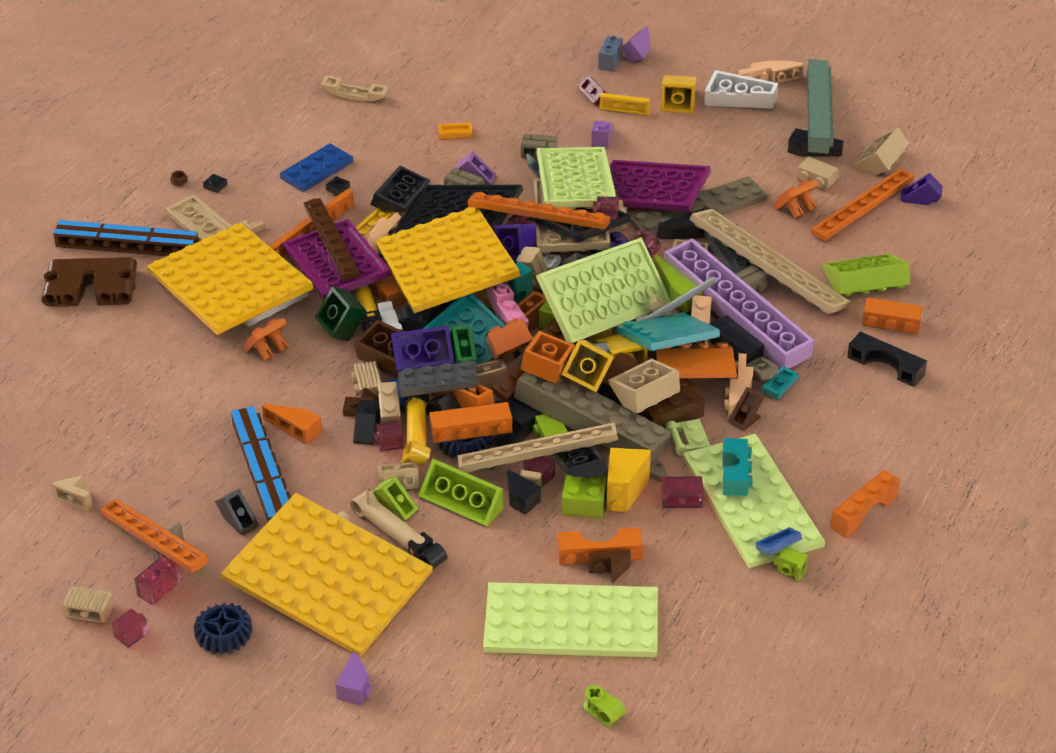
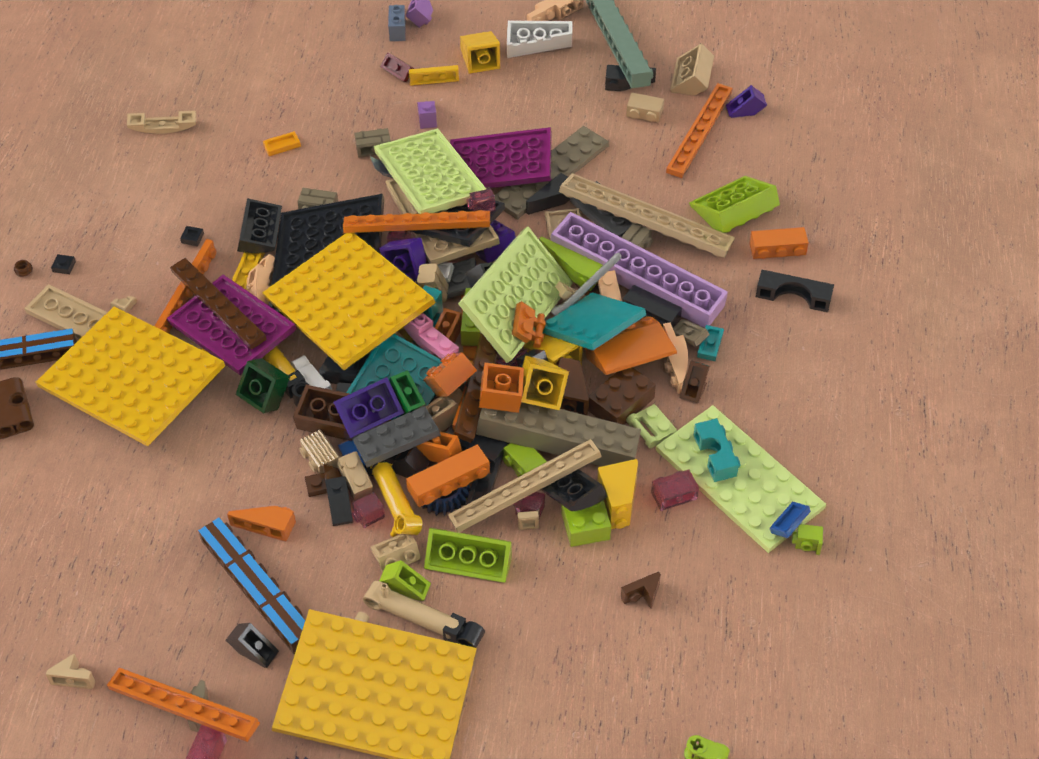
camera: 20 degrees left, 10 degrees up
(261, 336) = (198, 425): orange plate -> none
(316, 167) = (160, 219): blue plate -> none
(388, 290) = (297, 345): orange brick -> none
(474, 165) = (321, 180): medium lavender slope -> none
(521, 492) = (524, 535): black slope -> none
(571, 620) = (631, 664): yellowish green plate -> none
(574, 547) = (602, 584): orange arch -> none
(598, 317) = (524, 323): none -> orange plate
(645, 385) = (601, 388): tan slope -> none
(650, 240) = (519, 221): clear pink brick -> none
(657, 470) = (642, 473): dark tan tile -> none
(794, 194) = (637, 136): orange plate -> none
(850, 513) = (844, 453): orange arch -> none

